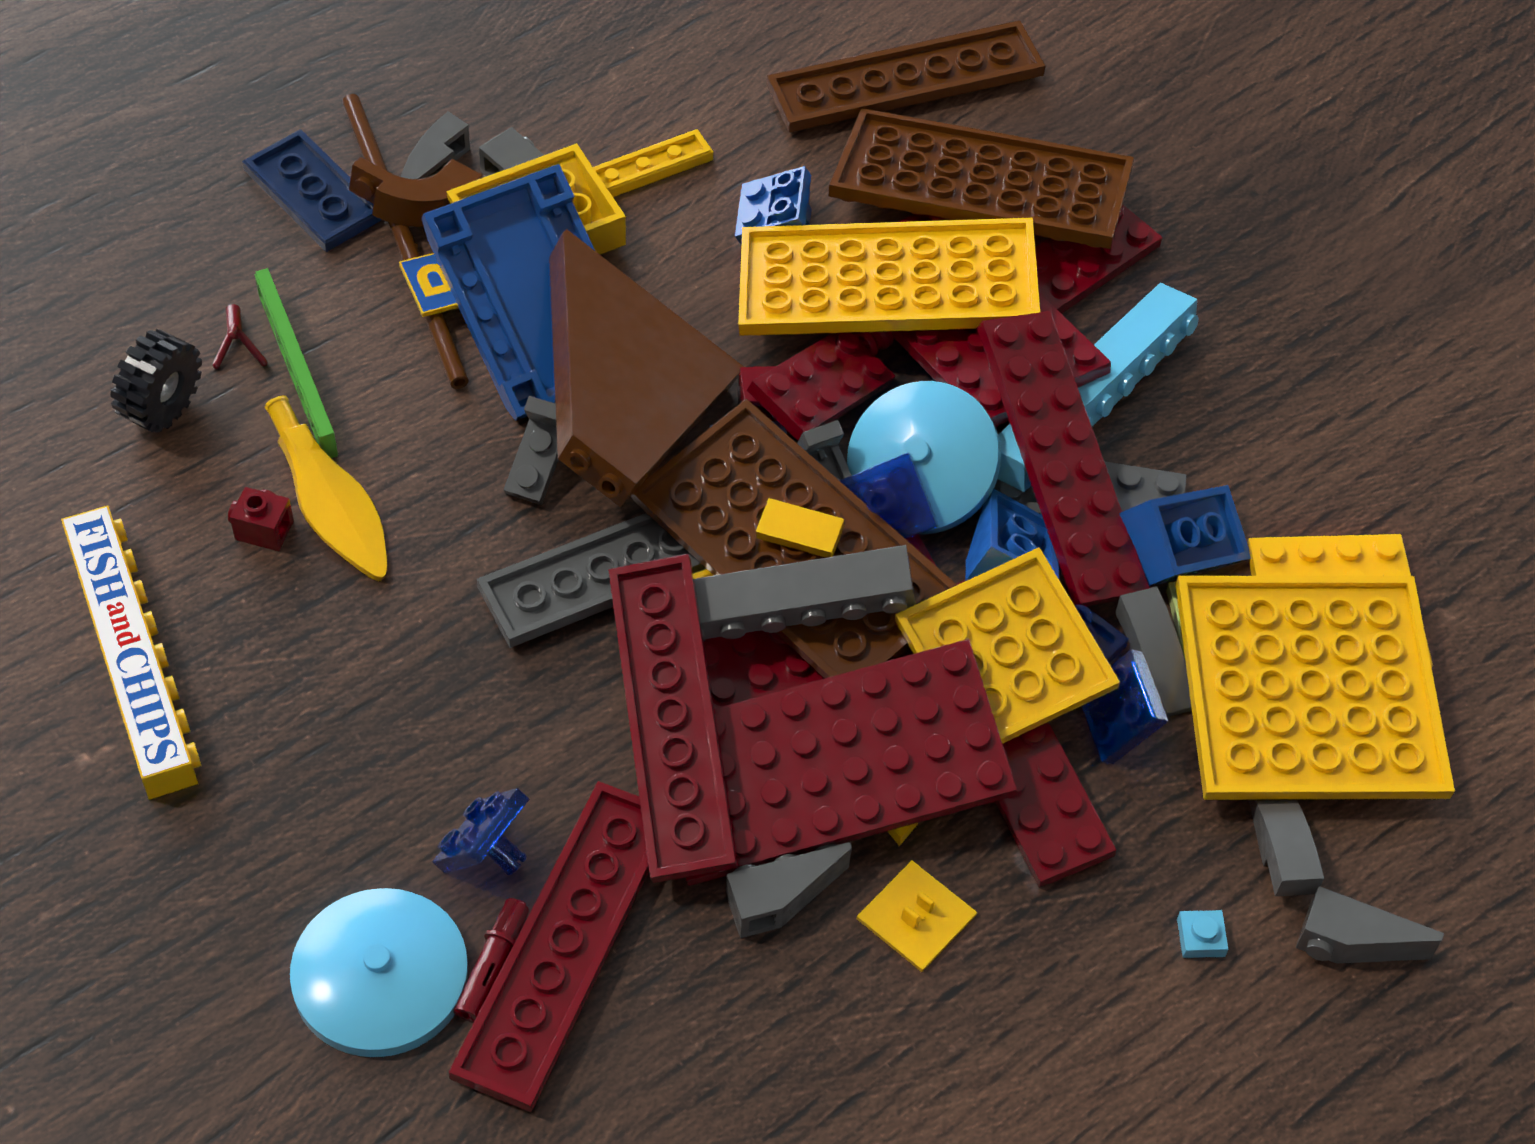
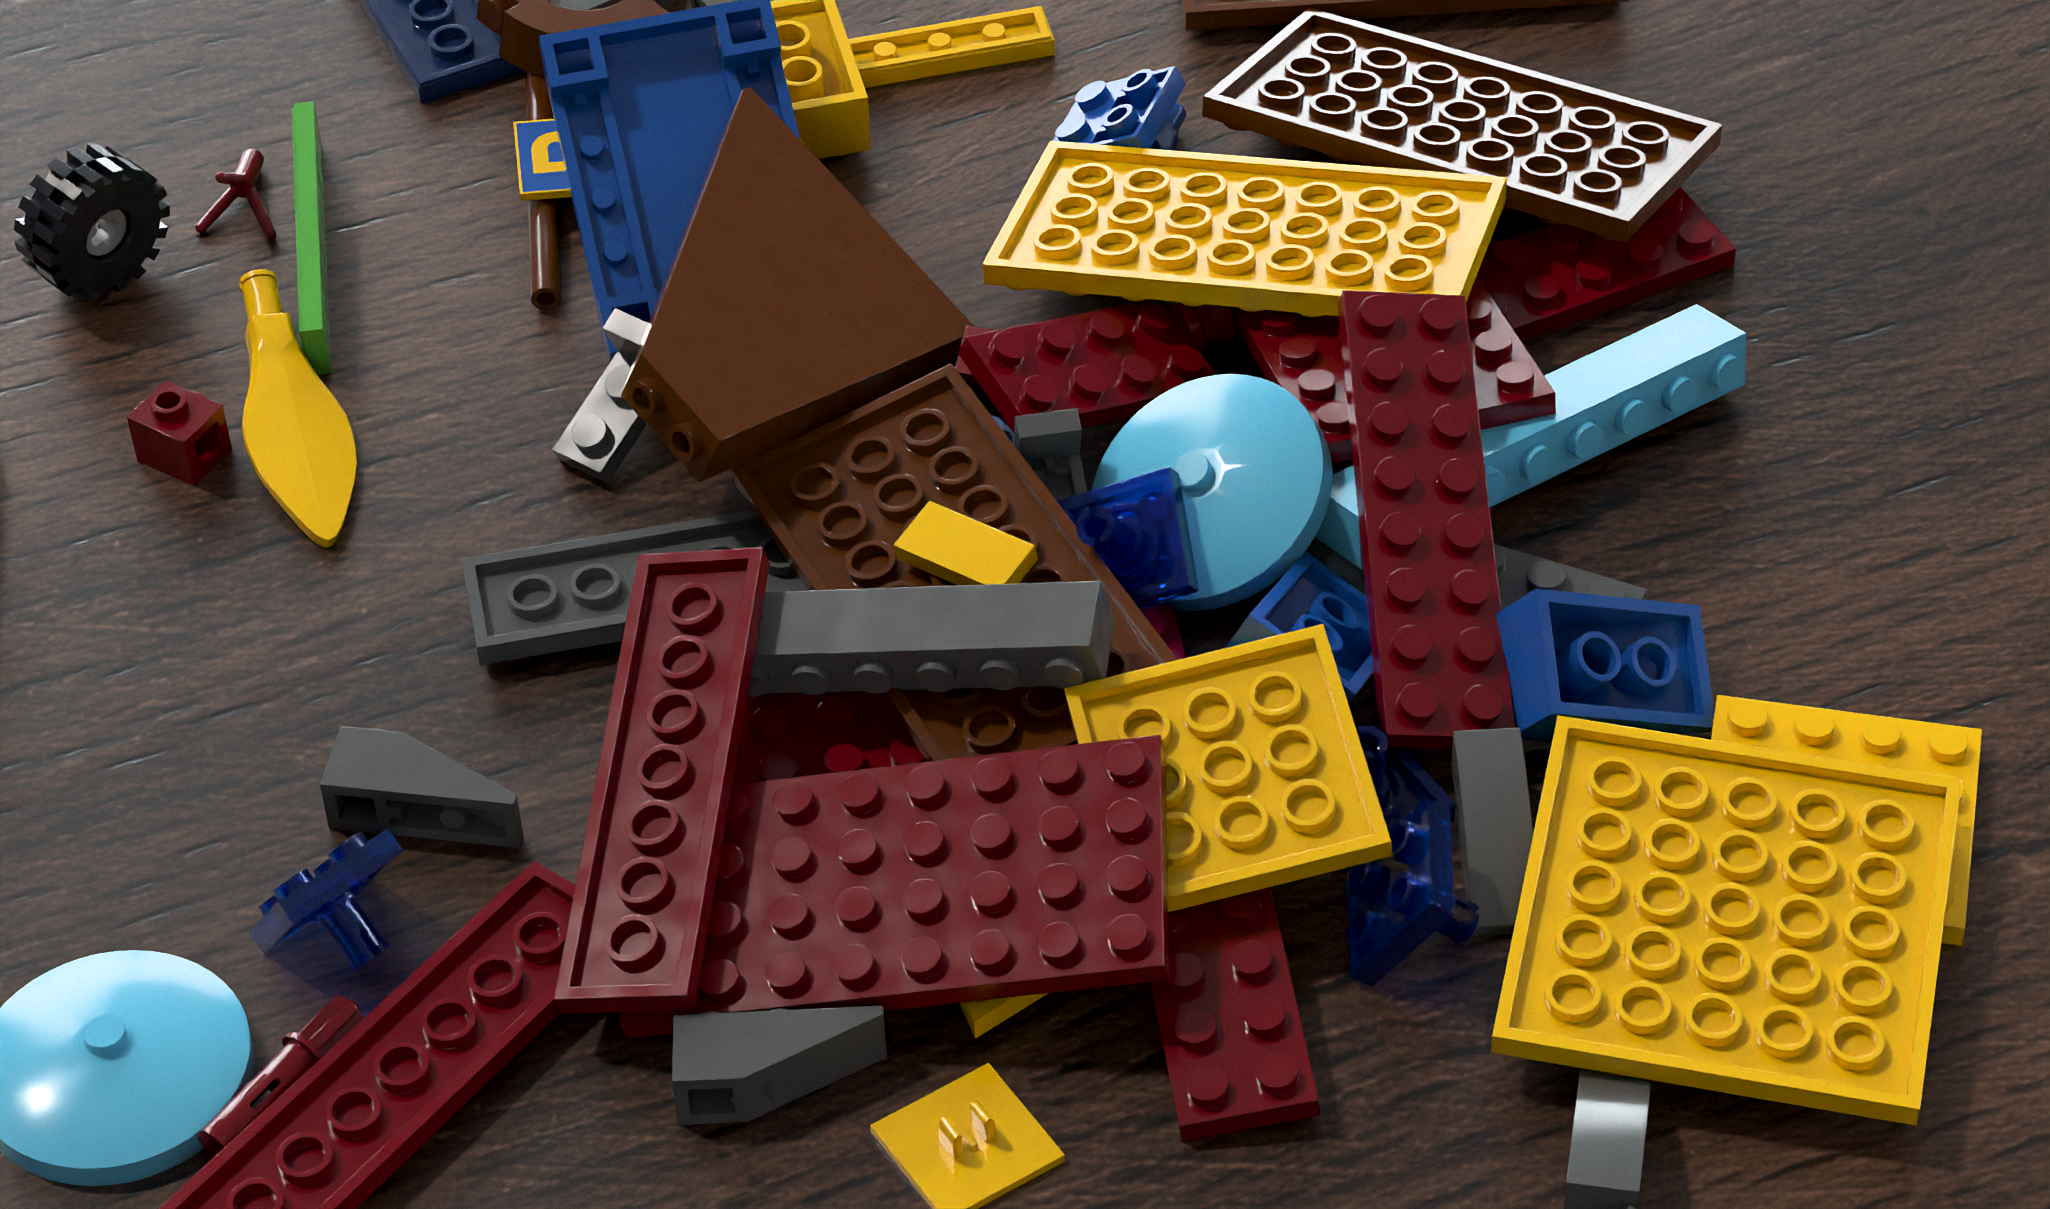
camera: 20 degrees right, 10 degrees down
(499, 744) = (405, 786): none -> dark grey slope

